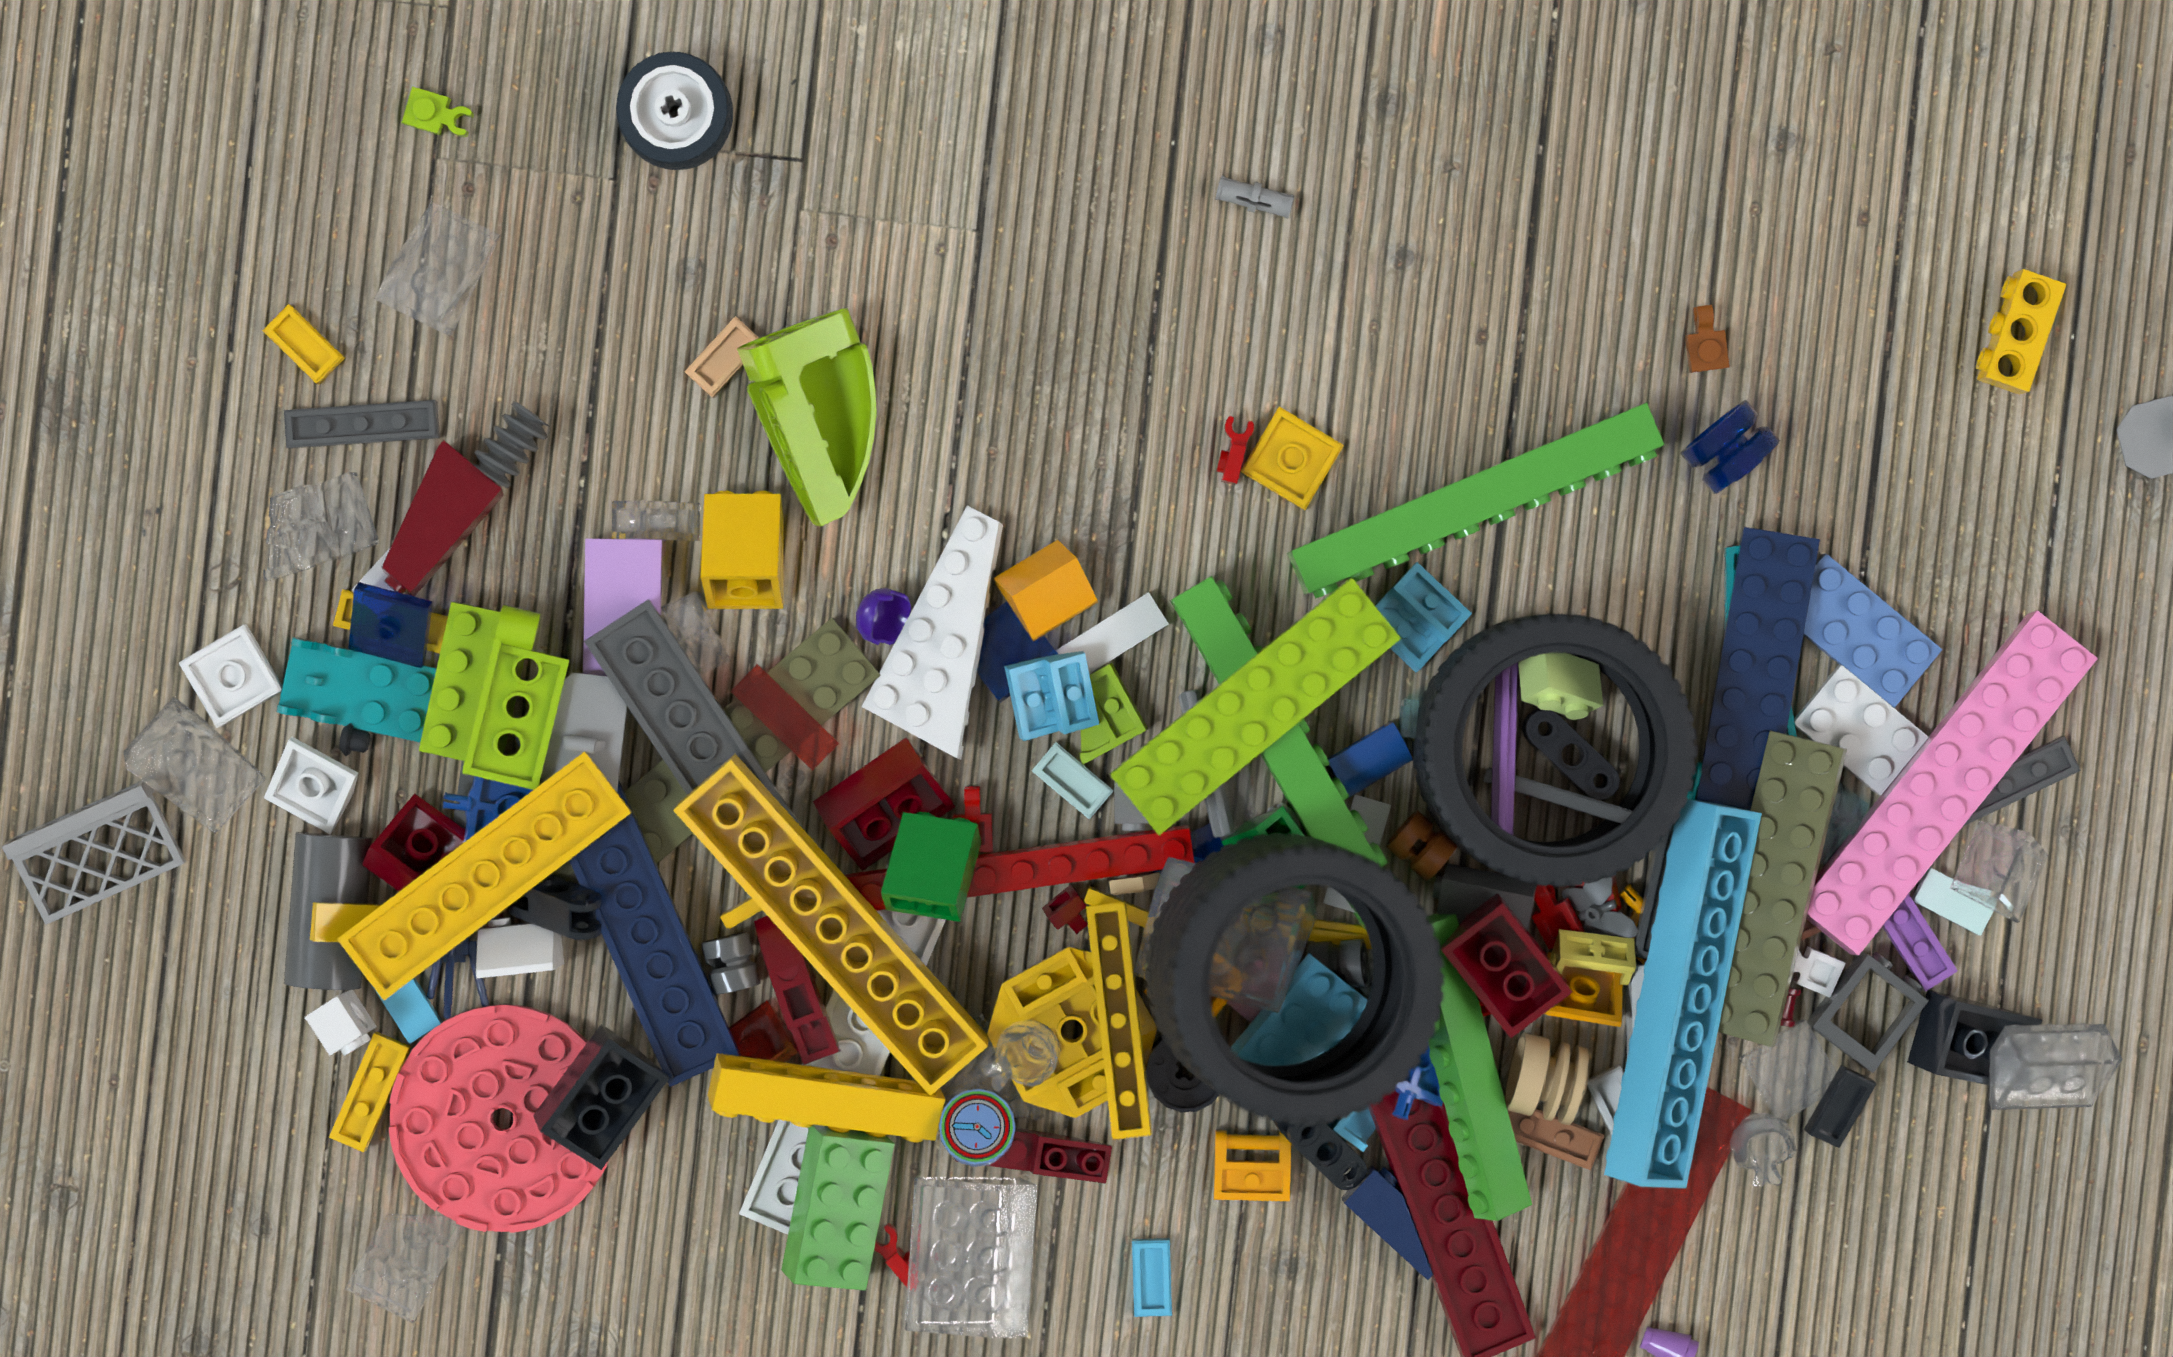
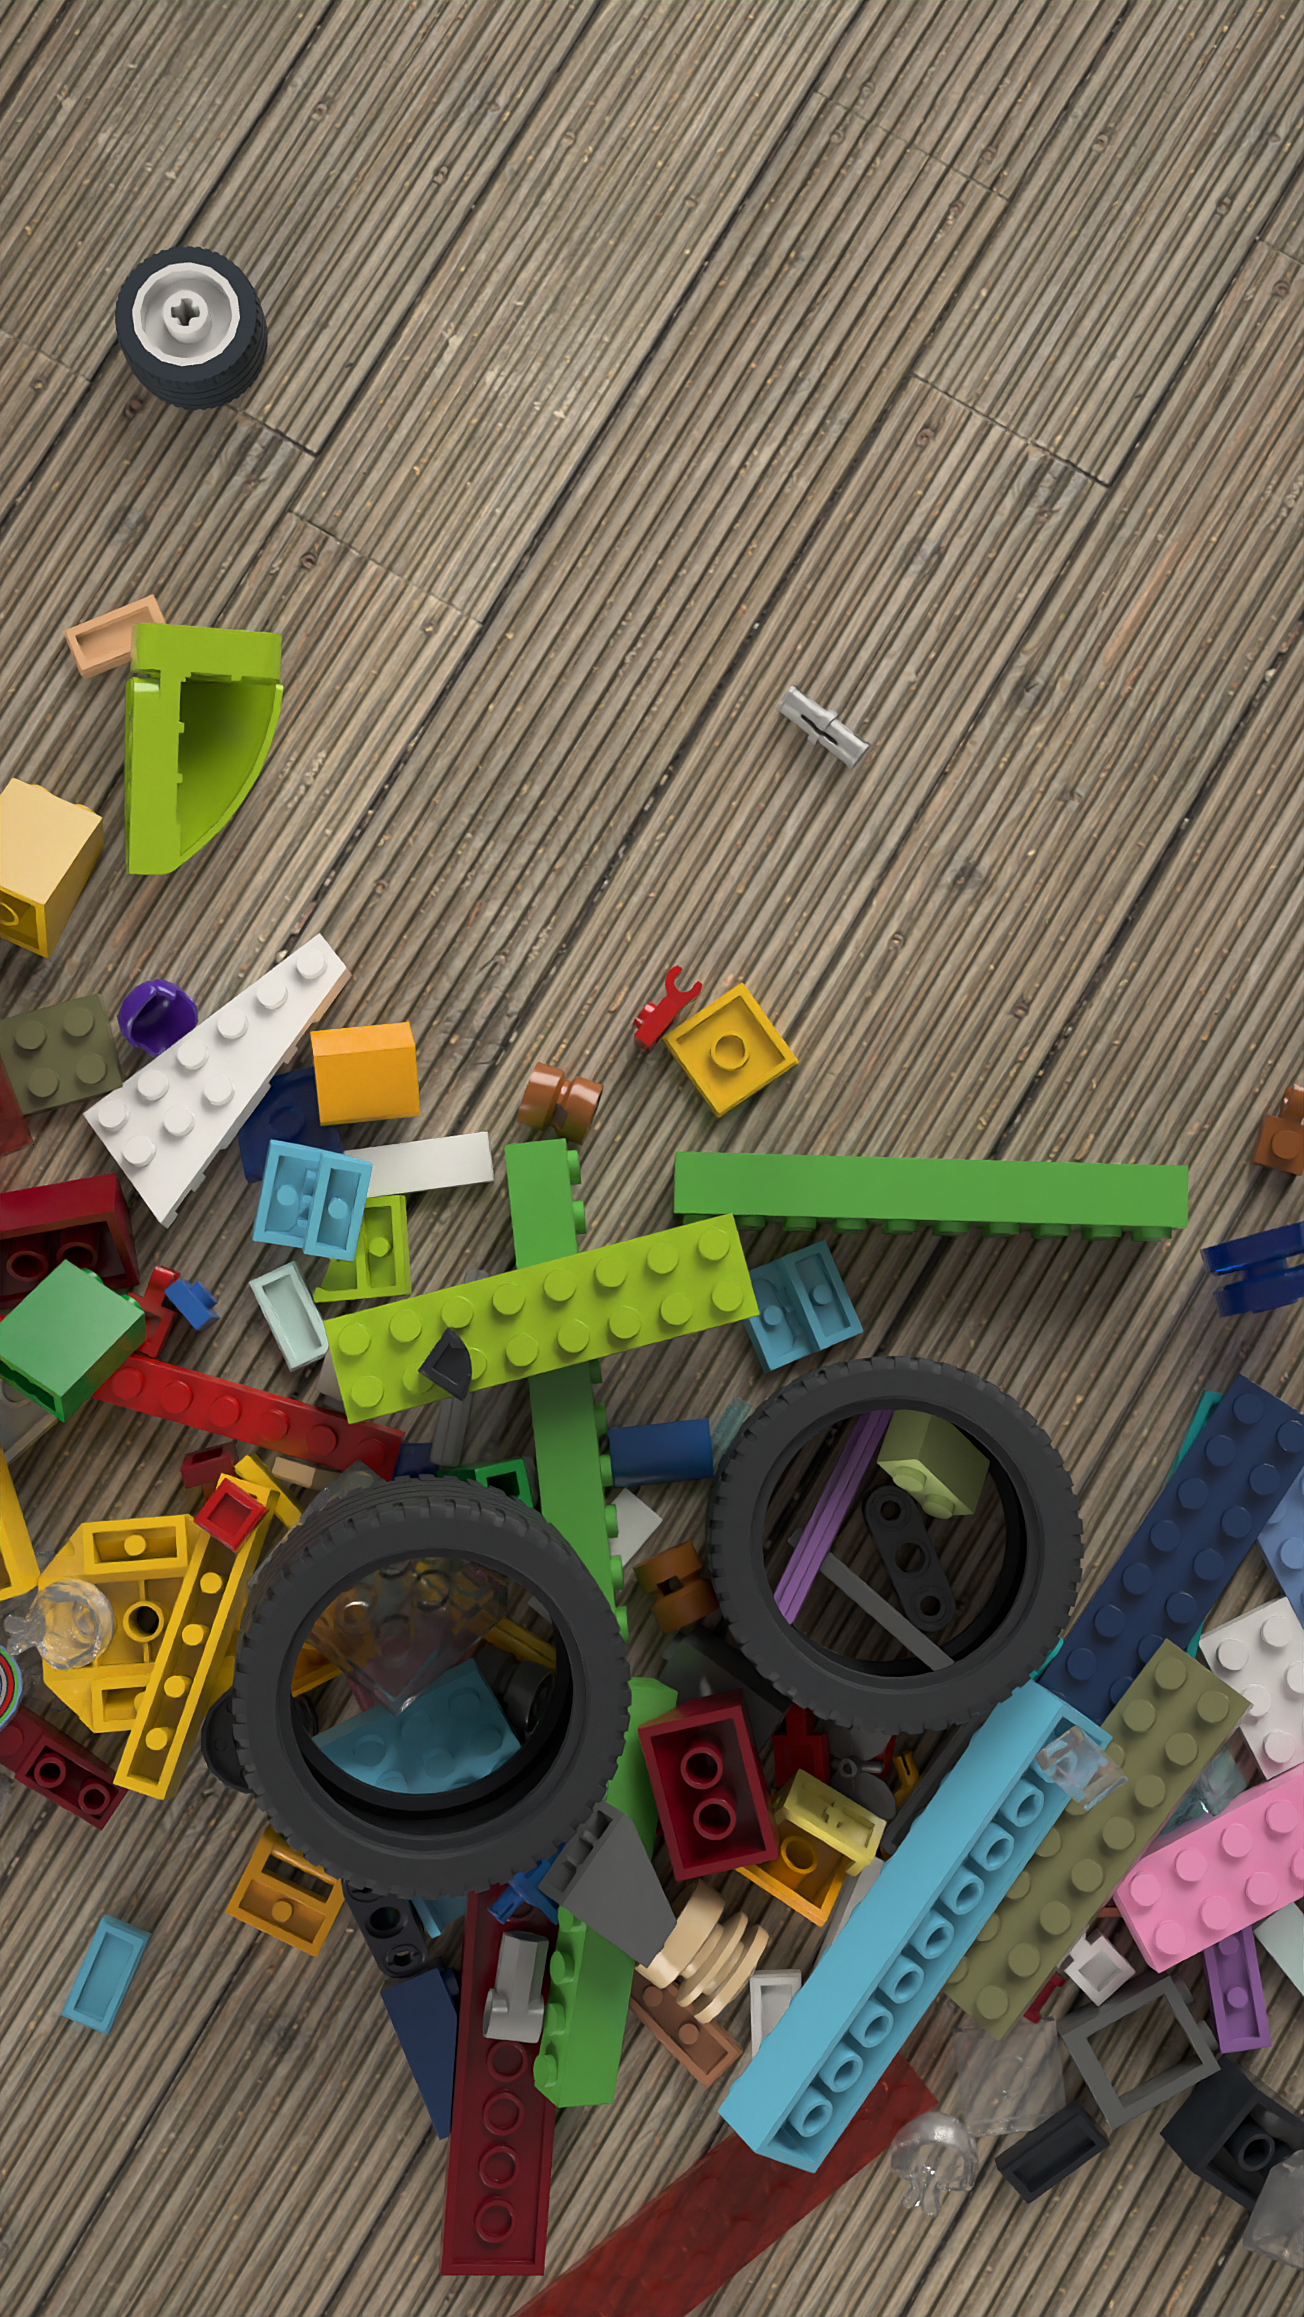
camera: 25 degrees right, 5 degrees down
(1001, 802) = (194, 1303): none -> blue plate
(1107, 931) = (231, 1515): none -> red tile
(1191, 550) = (559, 1103): none -> dark orange wheel
(1210, 766) = (449, 1365): none -> black tile
(1437, 1168) = (516, 2002): none -> light grey piece
(1470, 1059) = (612, 1885): none -> dark grey slope
(1748, 842) = (1081, 1768): none -> clear tile

